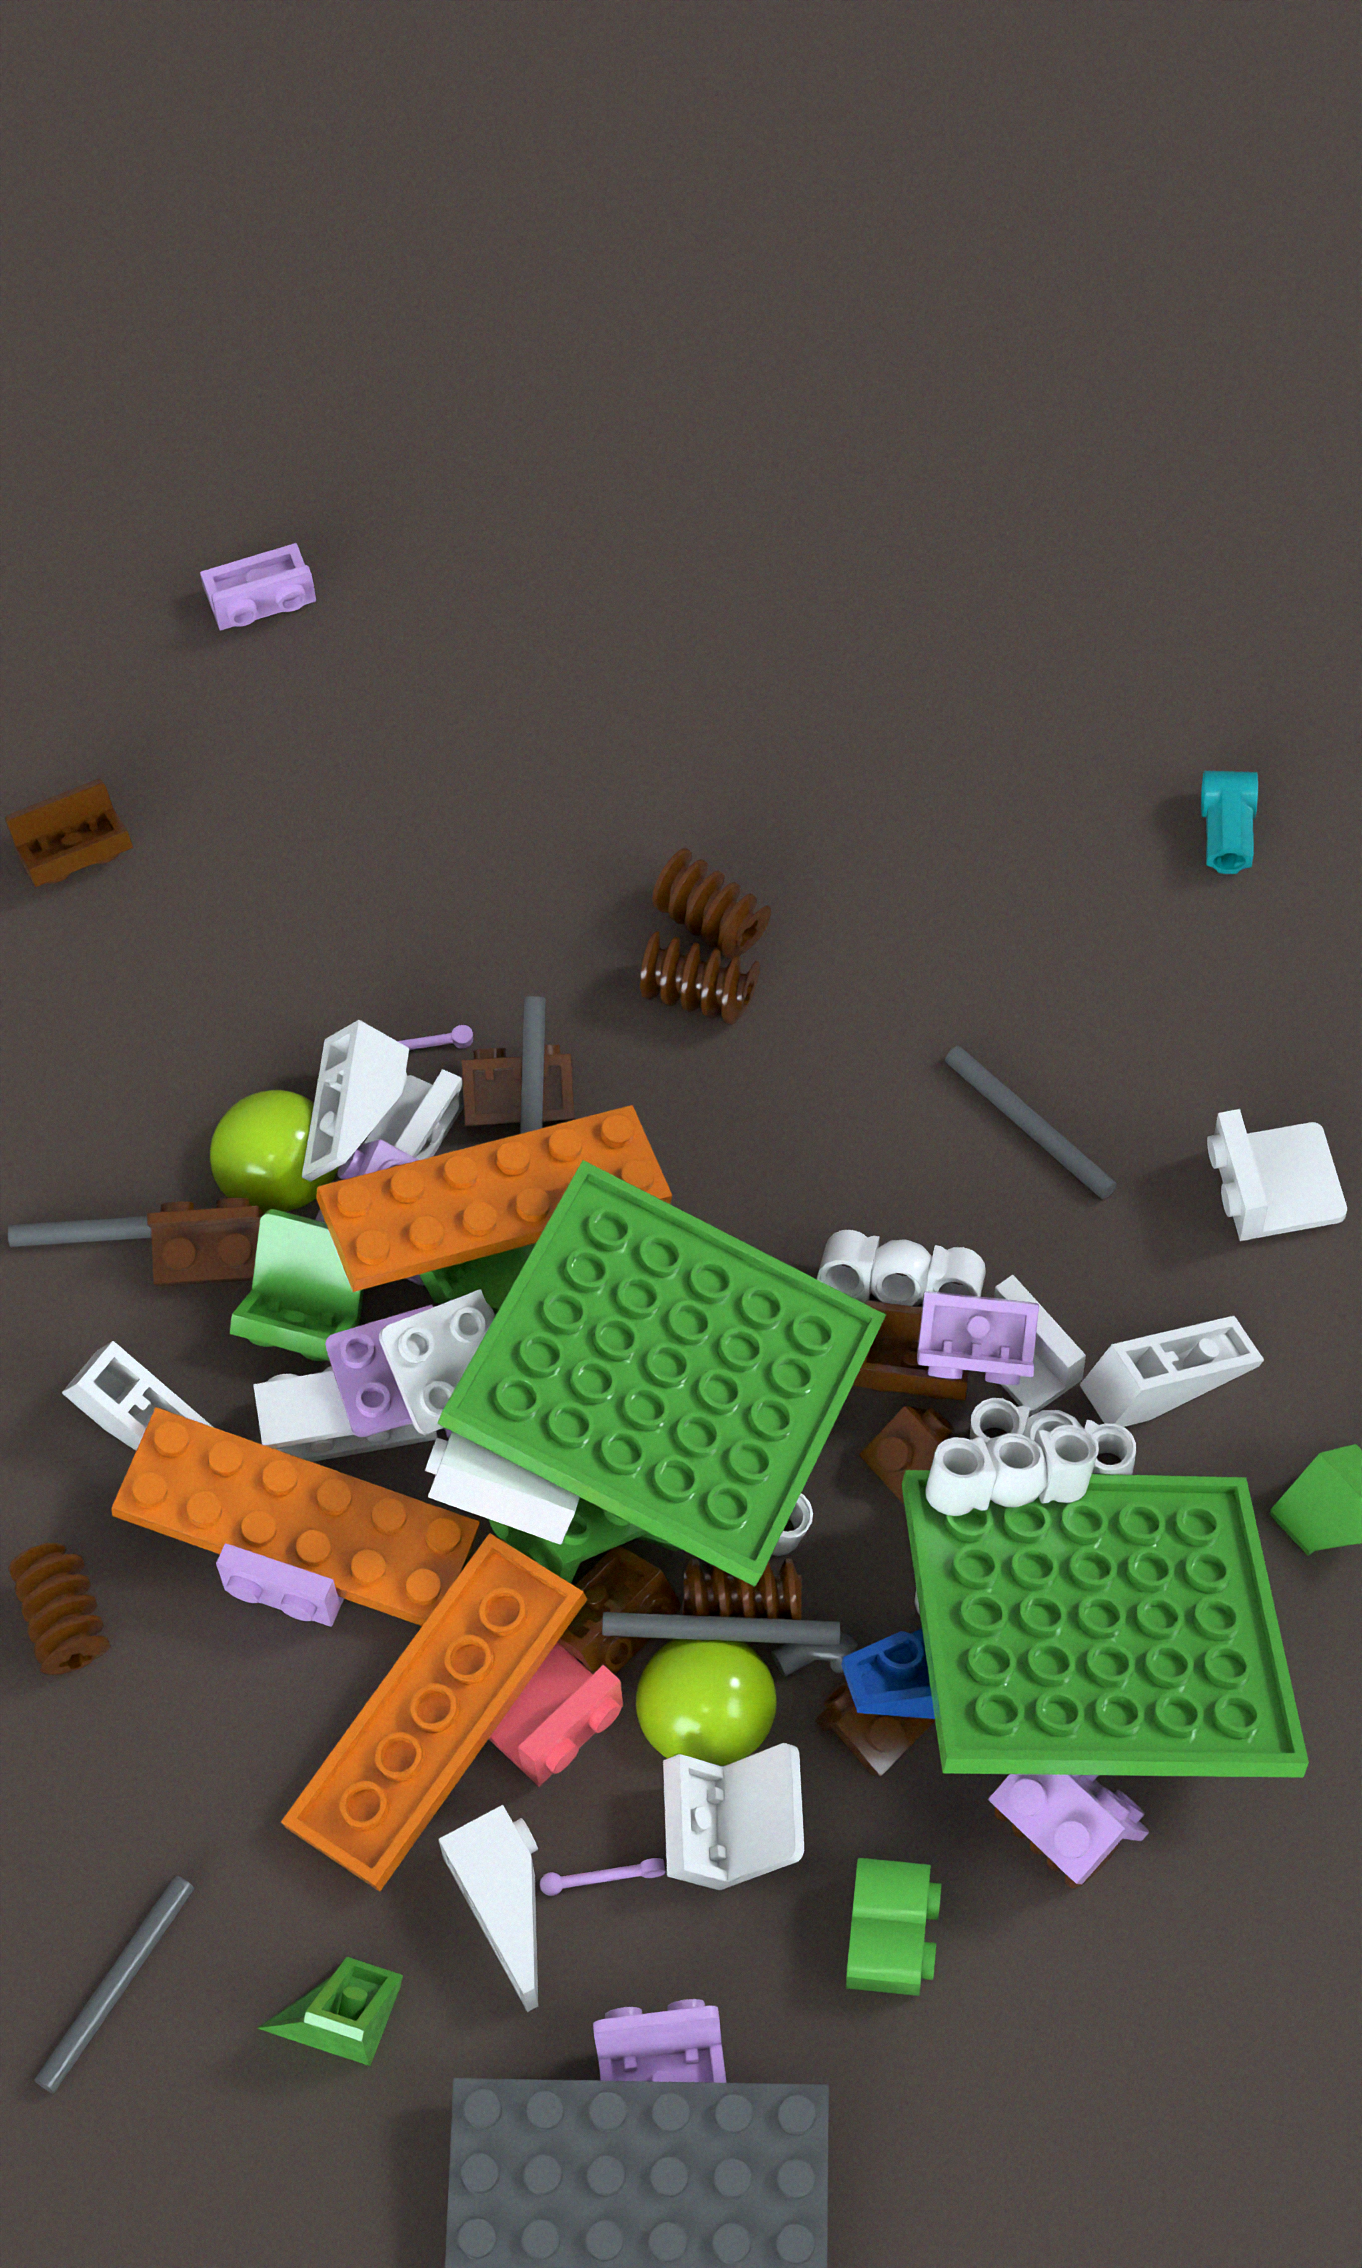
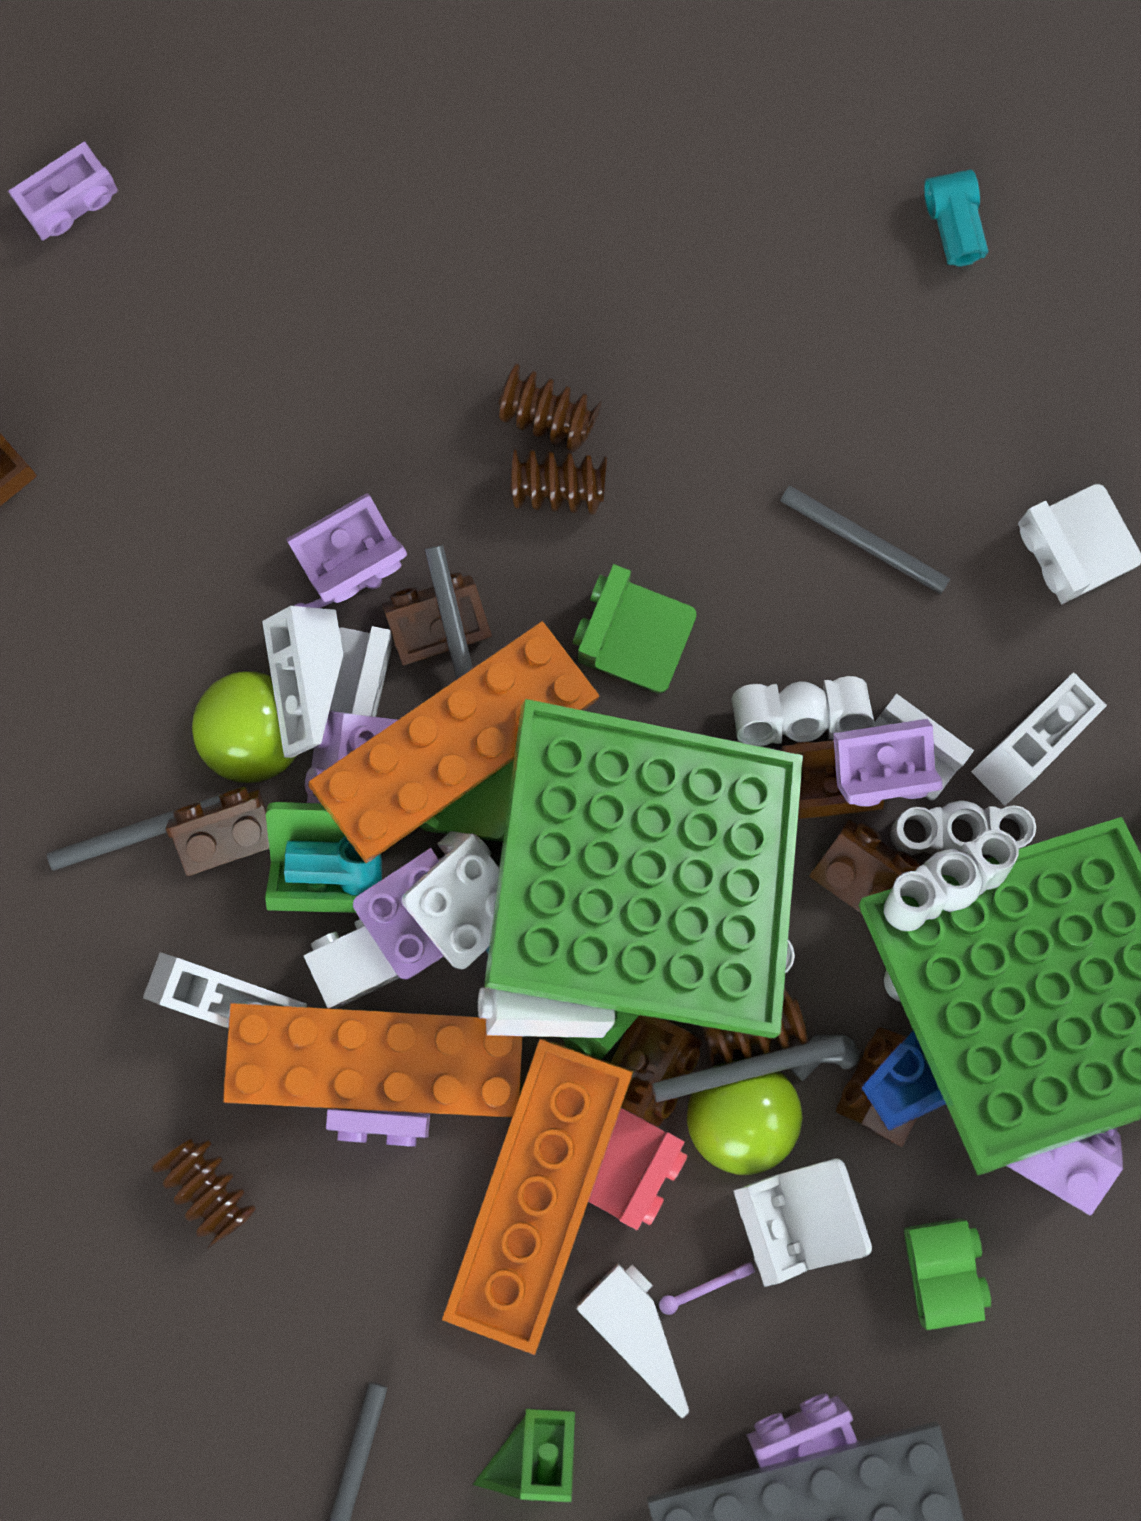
camera: 20 degrees left, 20 degrees up
(316, 1295) = (331, 865): none -> teal piece
(440, 988) = (347, 549): none -> lavender bracket
(732, 1149) = (634, 632): none -> bright green bracket

